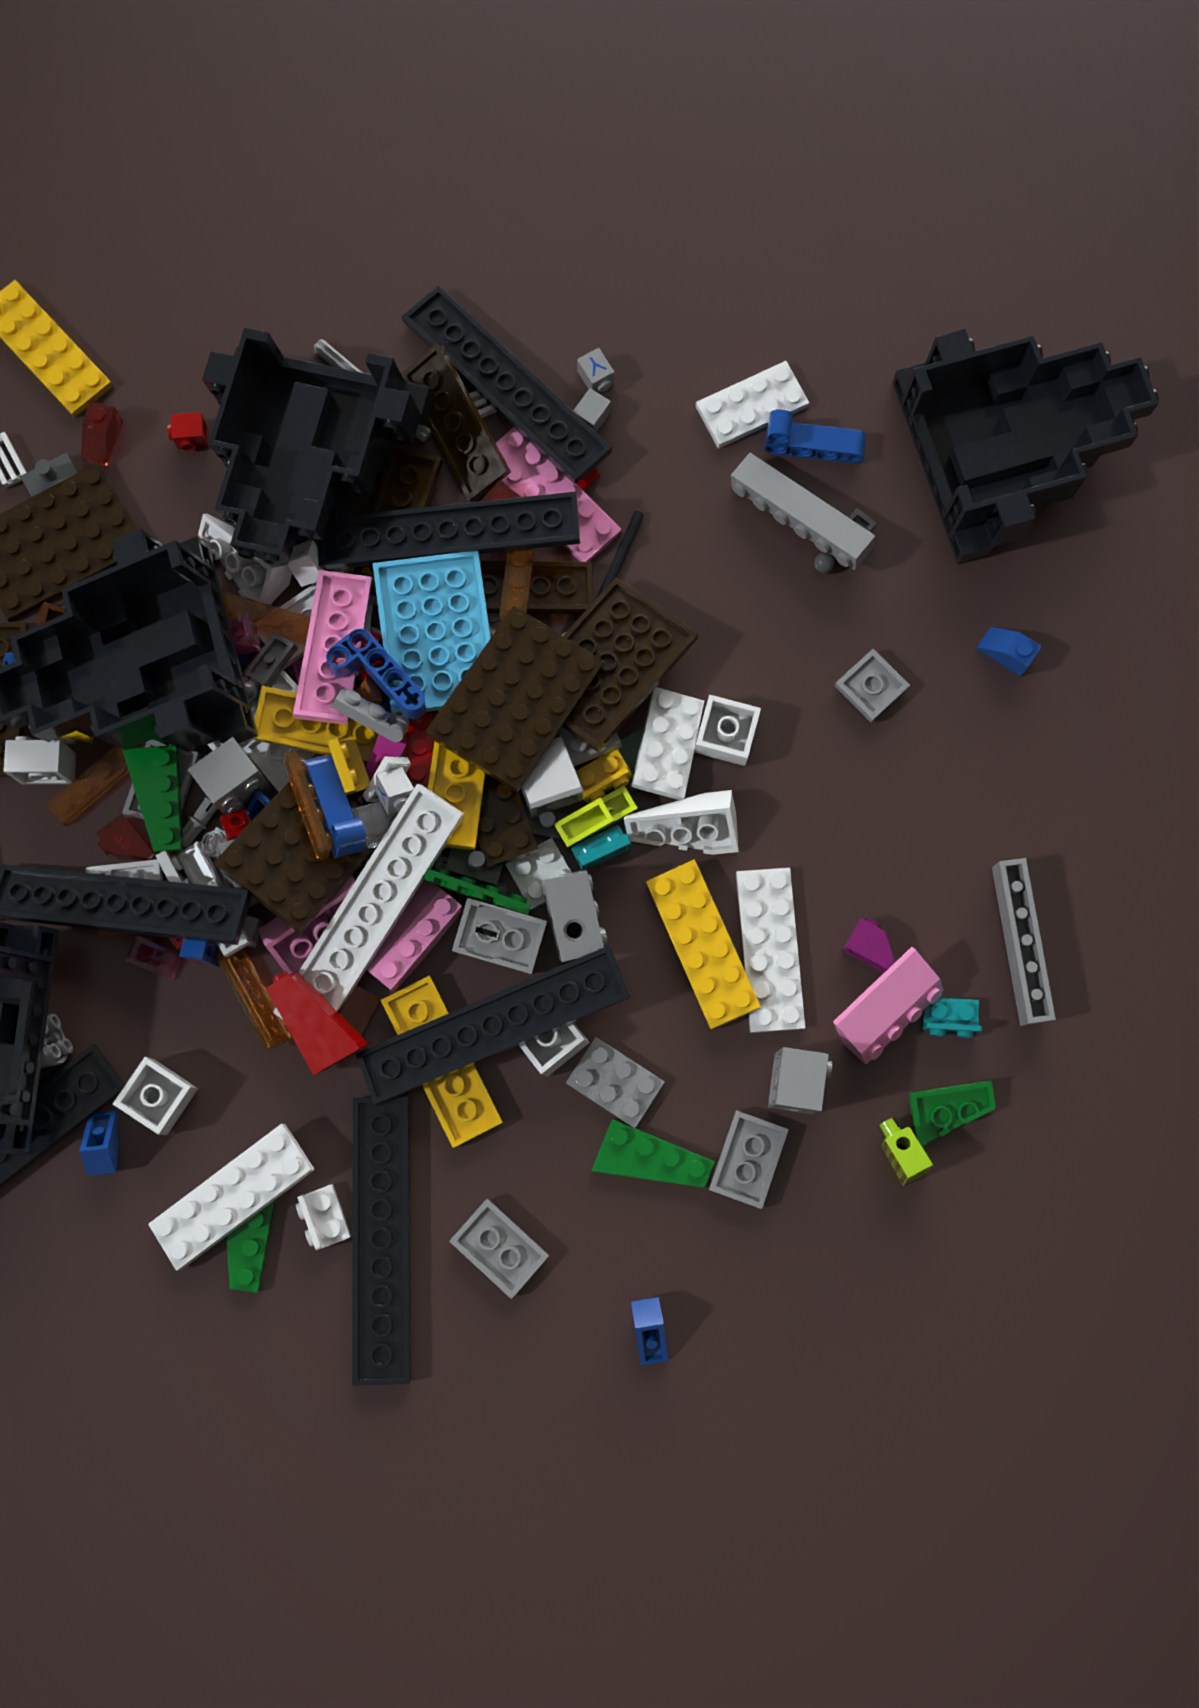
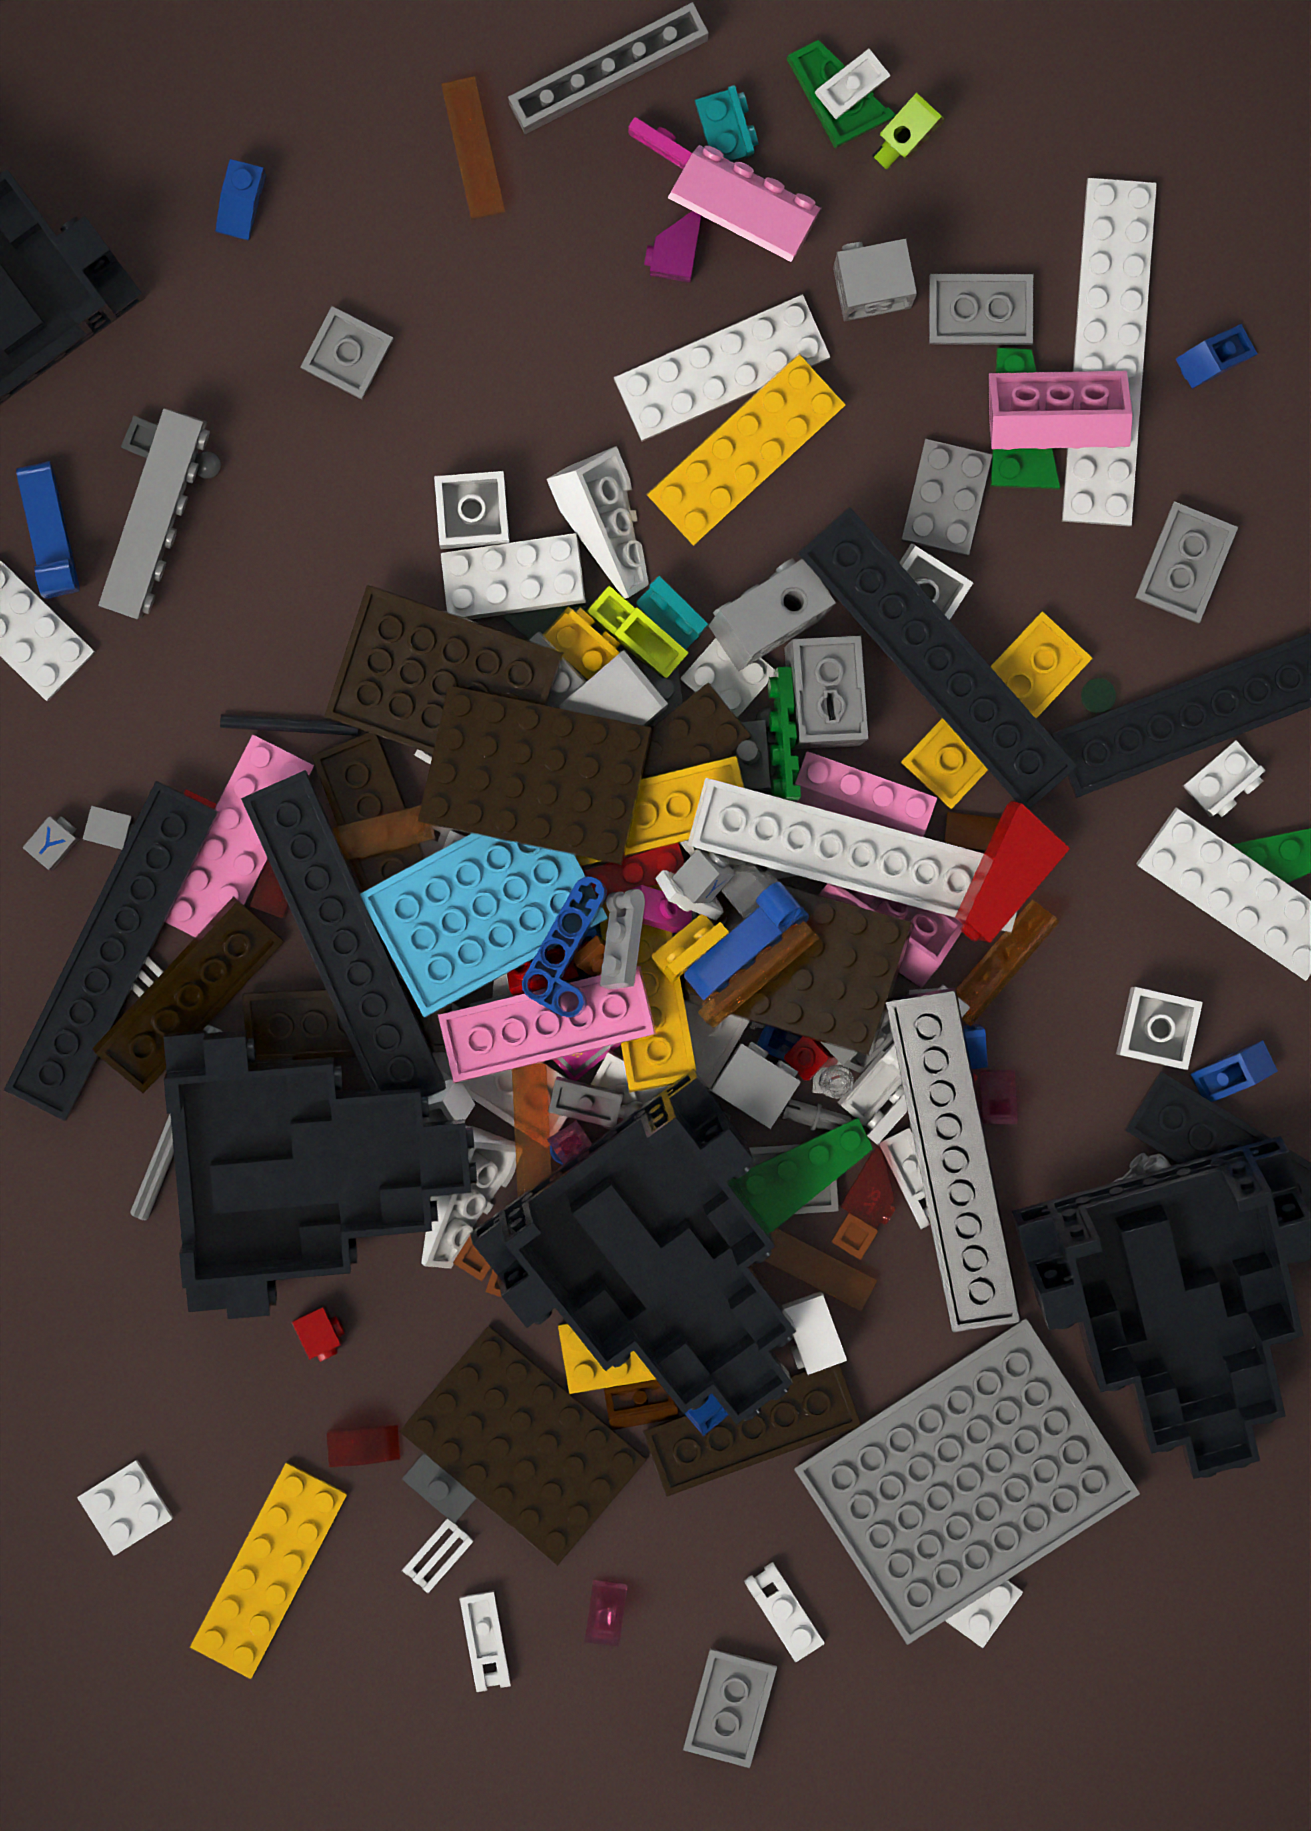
camera: 115 degrees left, 10 degrees up
(98, 817) = (854, 1236): none -> dark orange plate
(127, 272) = (125, 1507): none -> white plate
(424, 1143) = (1098, 695): none -> clear green tile
(649, 1190) = (1060, 410): none -> bright pink slope
(683, 1248) = (1111, 338): none -> white plate
(954, 1121) = (852, 84): none -> white plate
(956, 962) = (659, 141): none -> dark pink plate
(994, 825) = (473, 148): none -> clear orange plate

